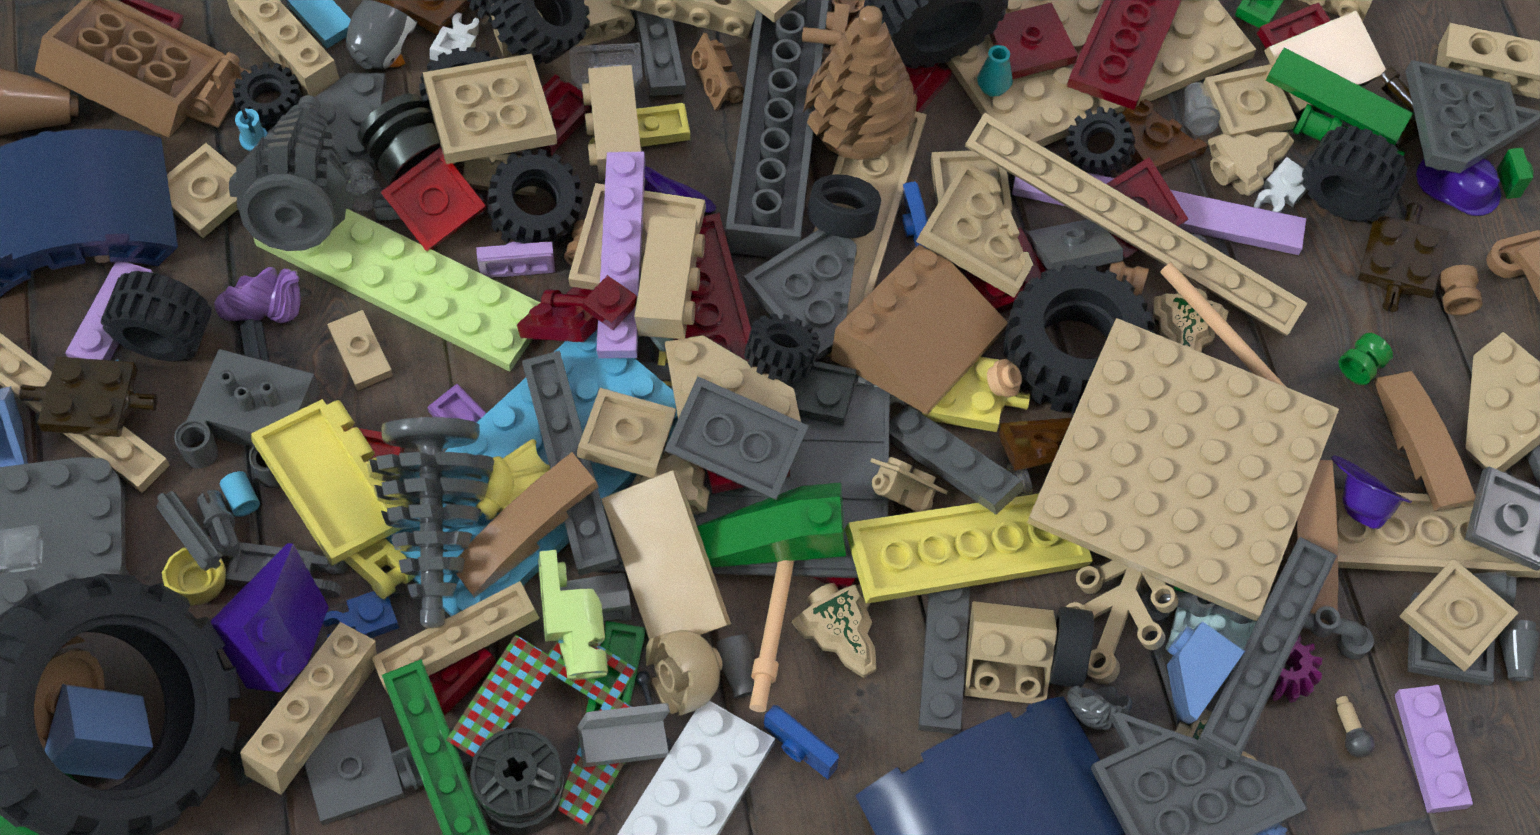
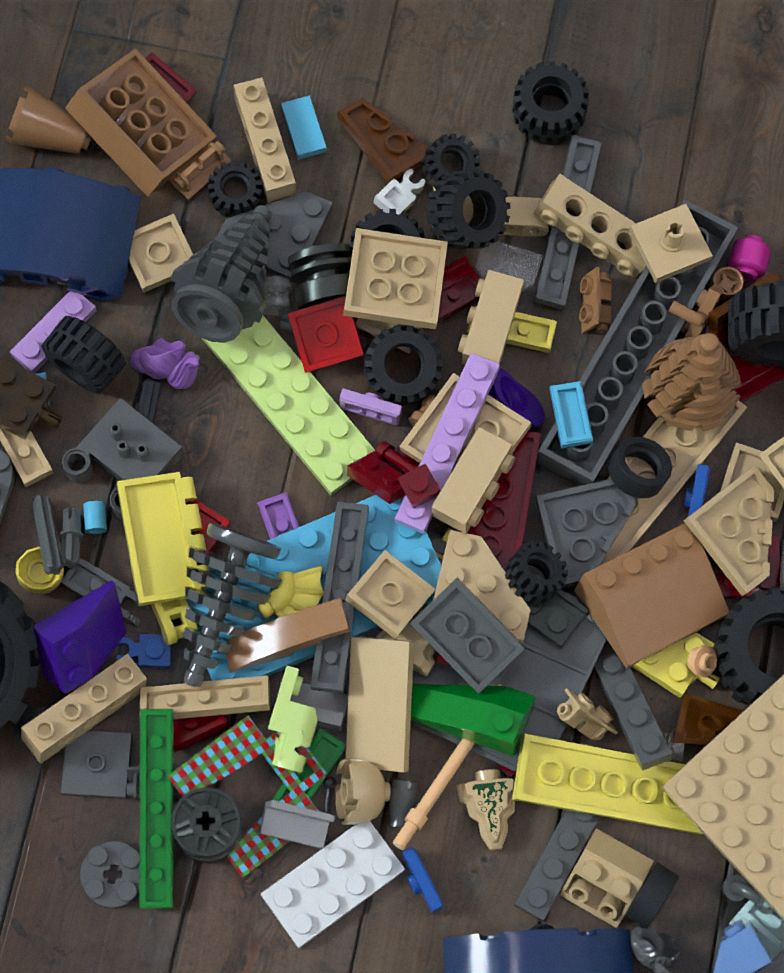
camera: 25 degrees right, 10 degrees up
(250, 129) = (211, 212): medium azure pin -> none
(360, 350) = (225, 434): tan plate -> none
(378, 35) = (338, 170): dark grey piece -> none
(744, 178) = (571, 414): none -> medium azure tile
(1121, 602) = (710, 876): tan plant -> none

